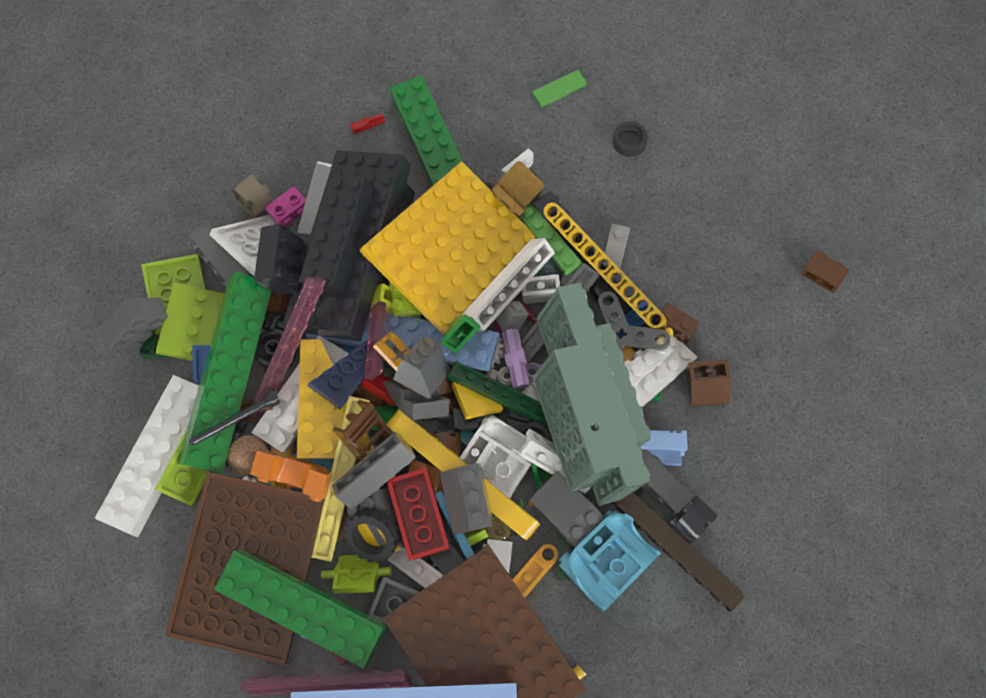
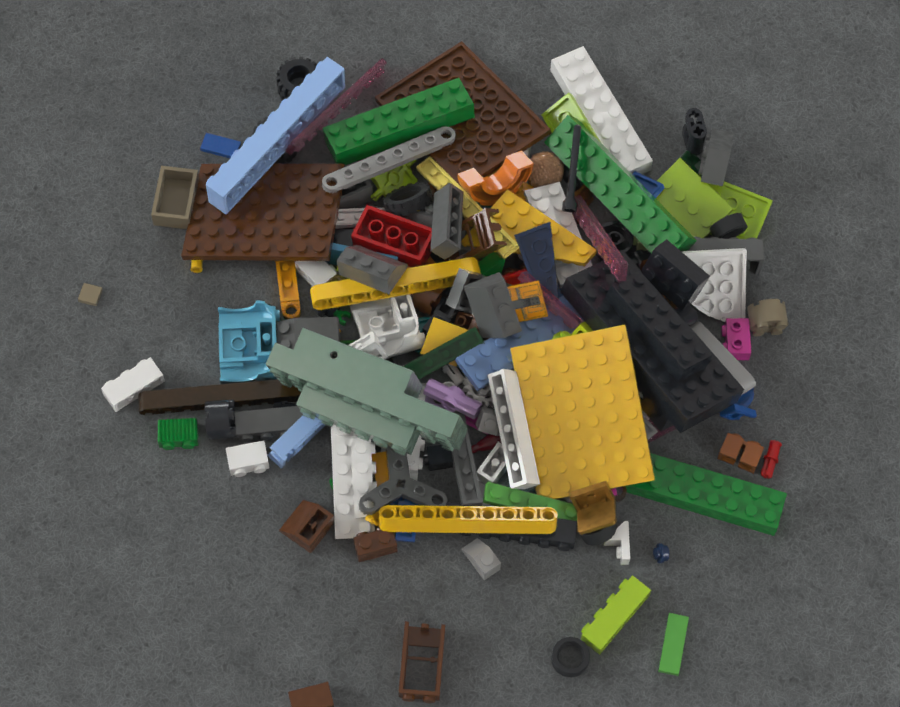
camera: 125 degrees right, 5 degrees down
(124, 359) = (694, 133): none -> black connector
(194, 272) = (729, 226): none -> black tyre
(348, 581) = (388, 160): none -> light grey plate
(378, 138) = (731, 448): none -> dark orange piece
(459, 333) = (500, 354): green slope -> none
(502, 138) = (661, 553): none -> dark blue plate
(574, 133) = (615, 615): none -> lime brick
(700, 474) = (247, 458): none -> white brick
(707, 242) = (422, 637): none -> reddish brown door
(728, 625) = (131, 382): none -> white brick
(732, 548) = (178, 433): none -> green brick

